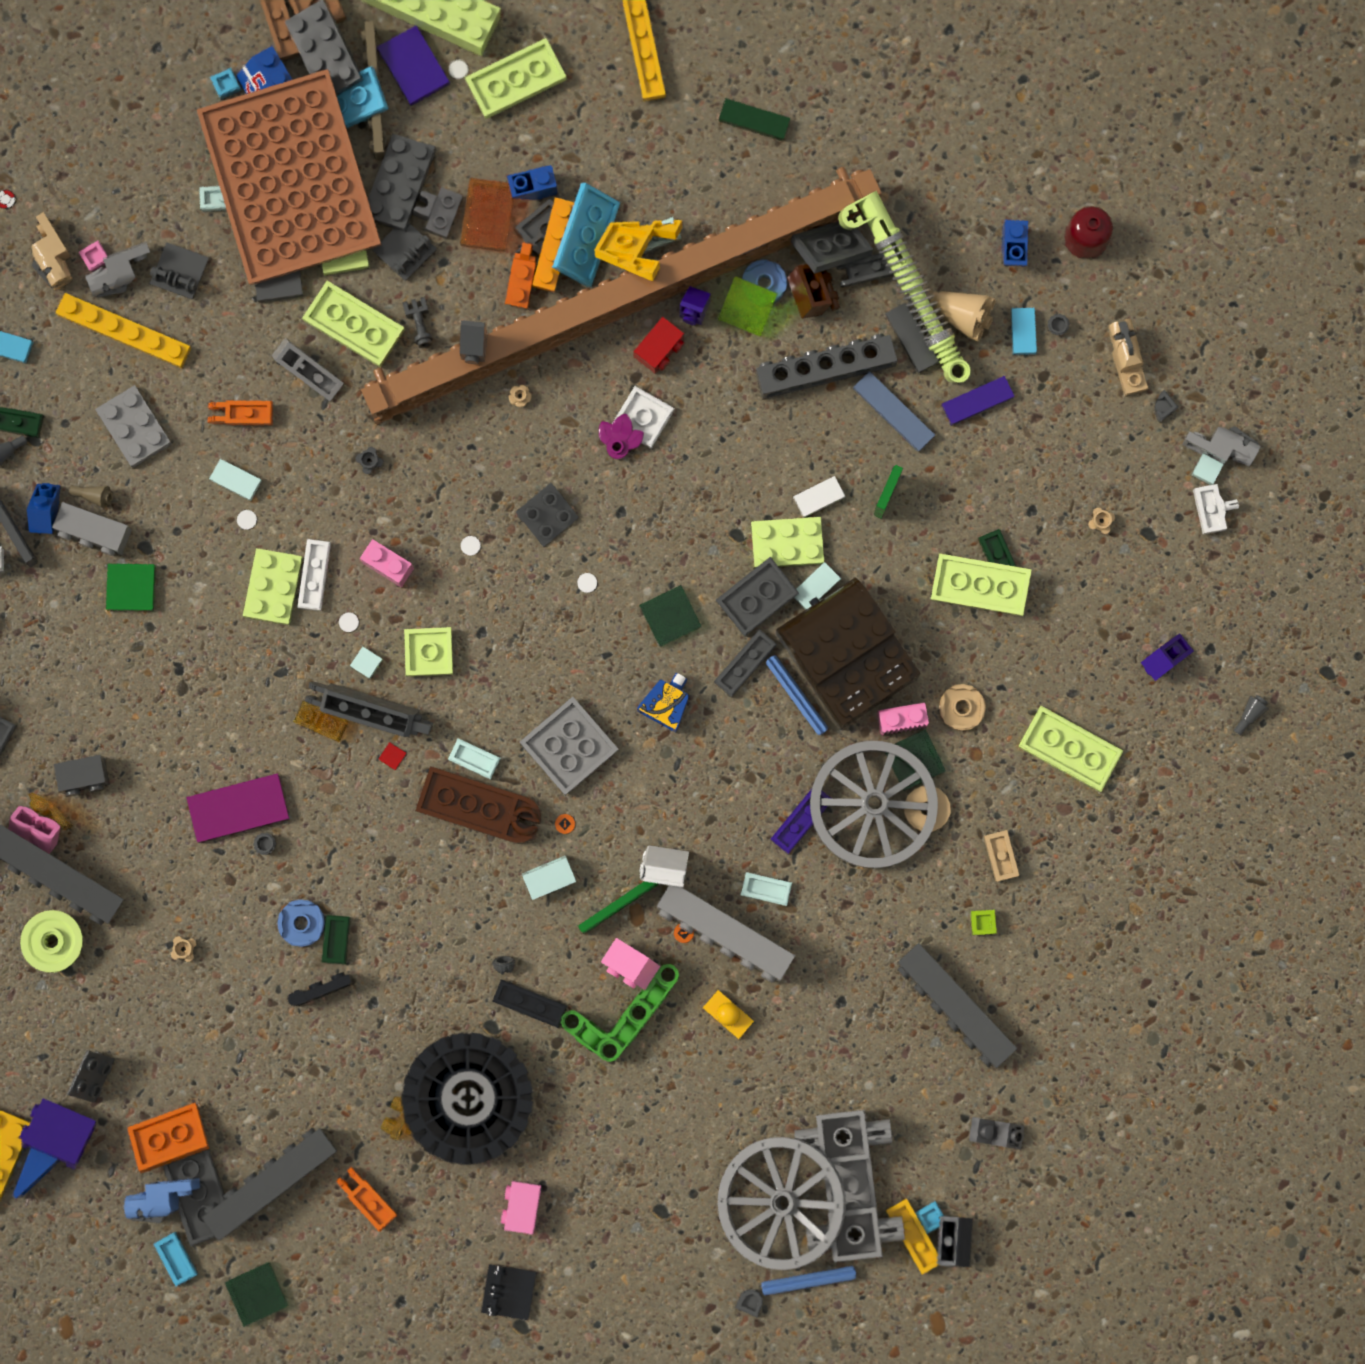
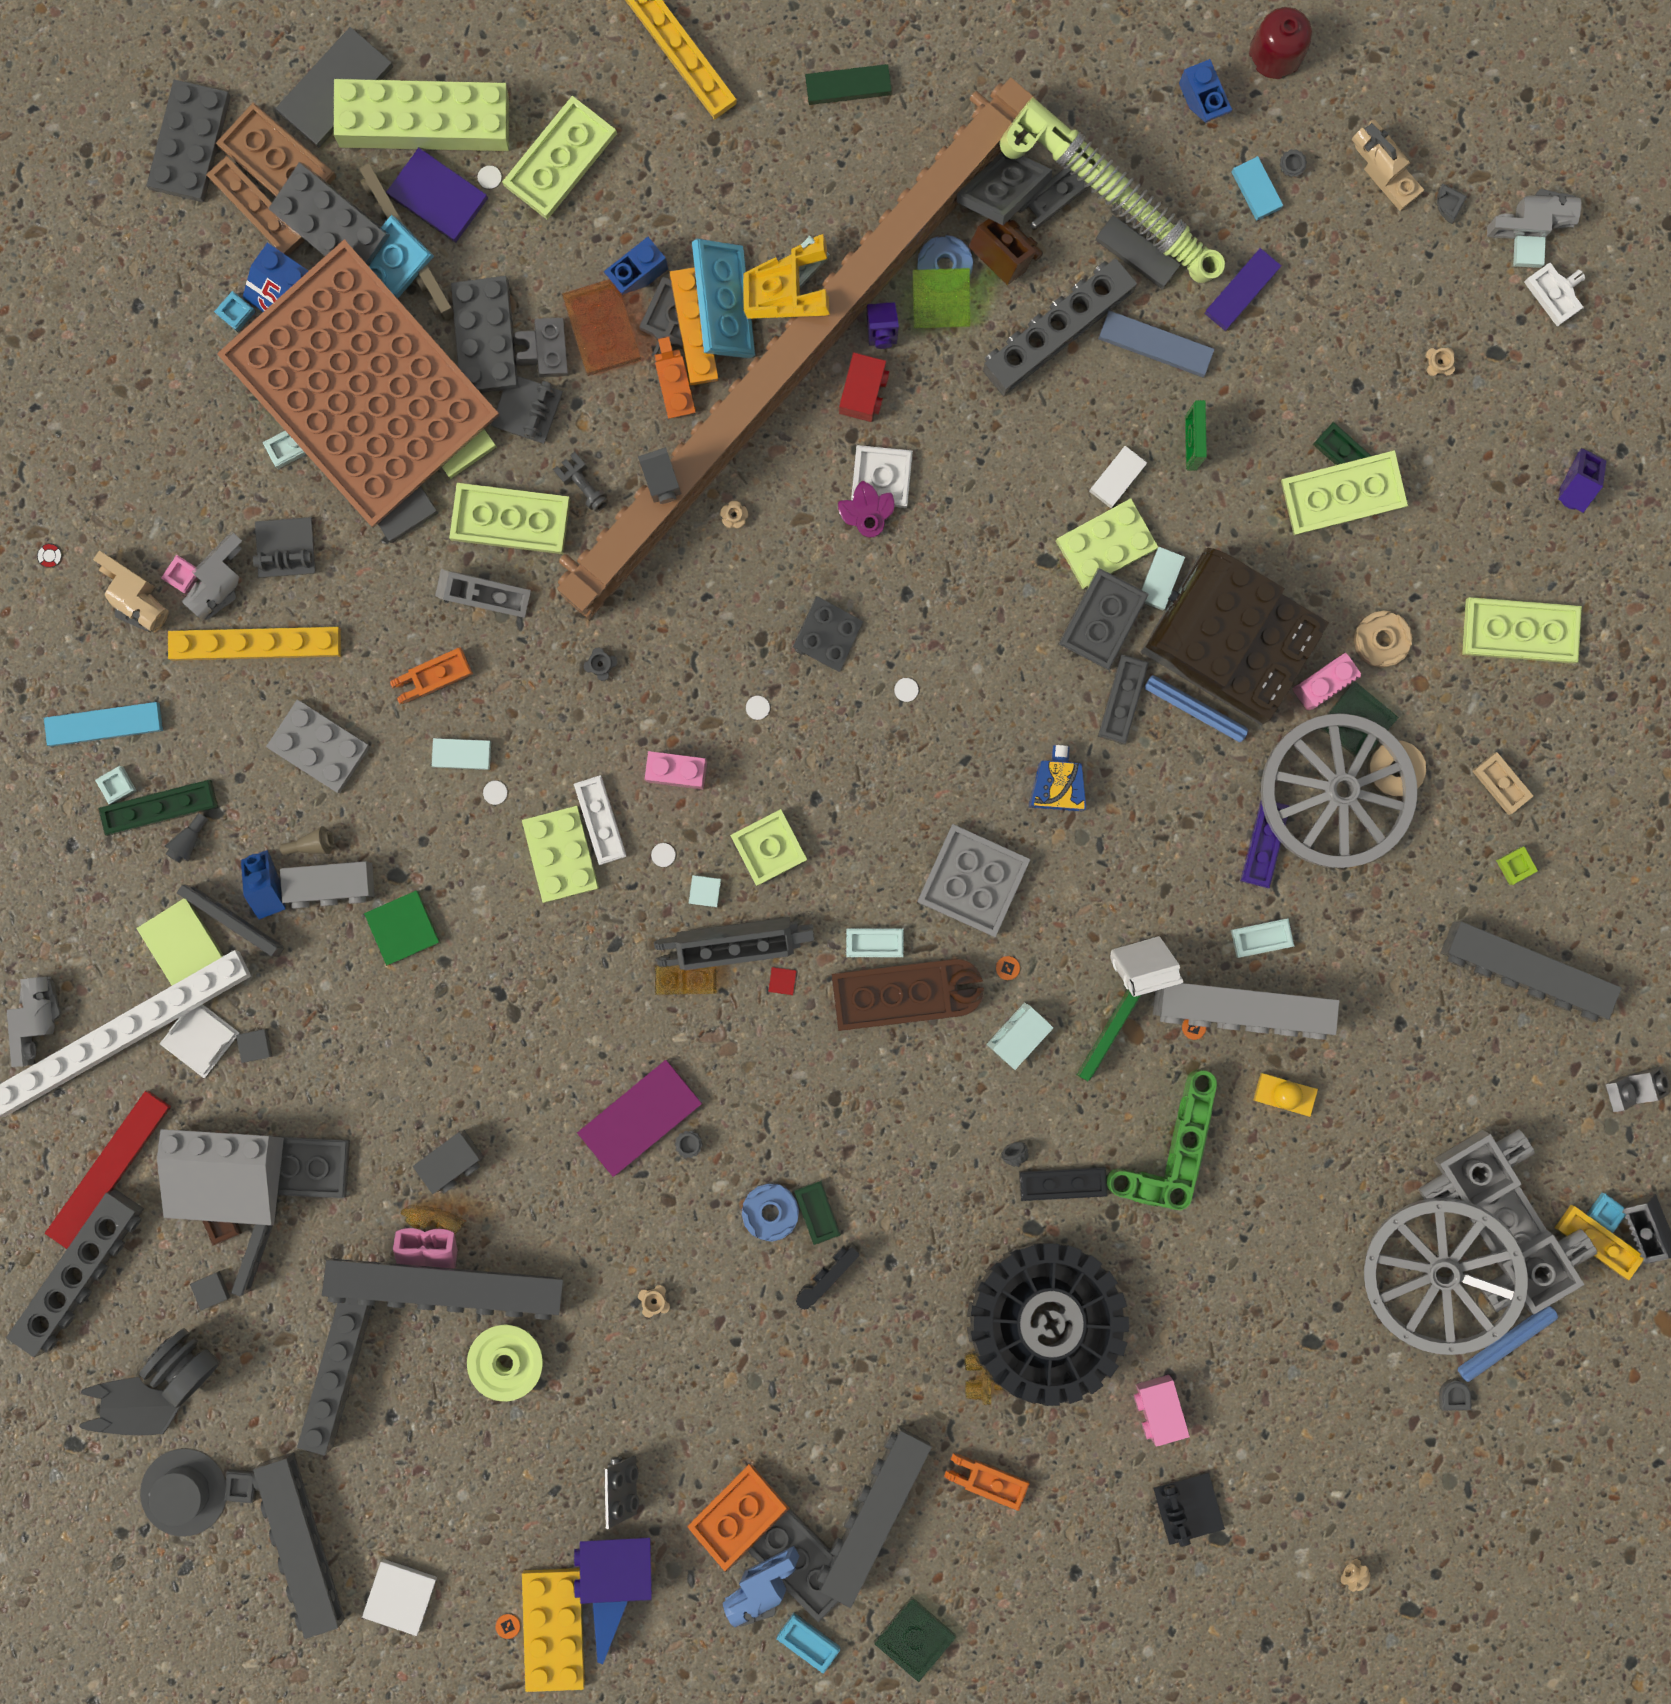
camera: 25 degrees left, 5 degrees up
(630, 964) = (1157, 1091): bright pink brick -> none
(670, 616) = (1016, 684): clear green tile -> none
(965, 311) = (1186, 194): tan cone -> none

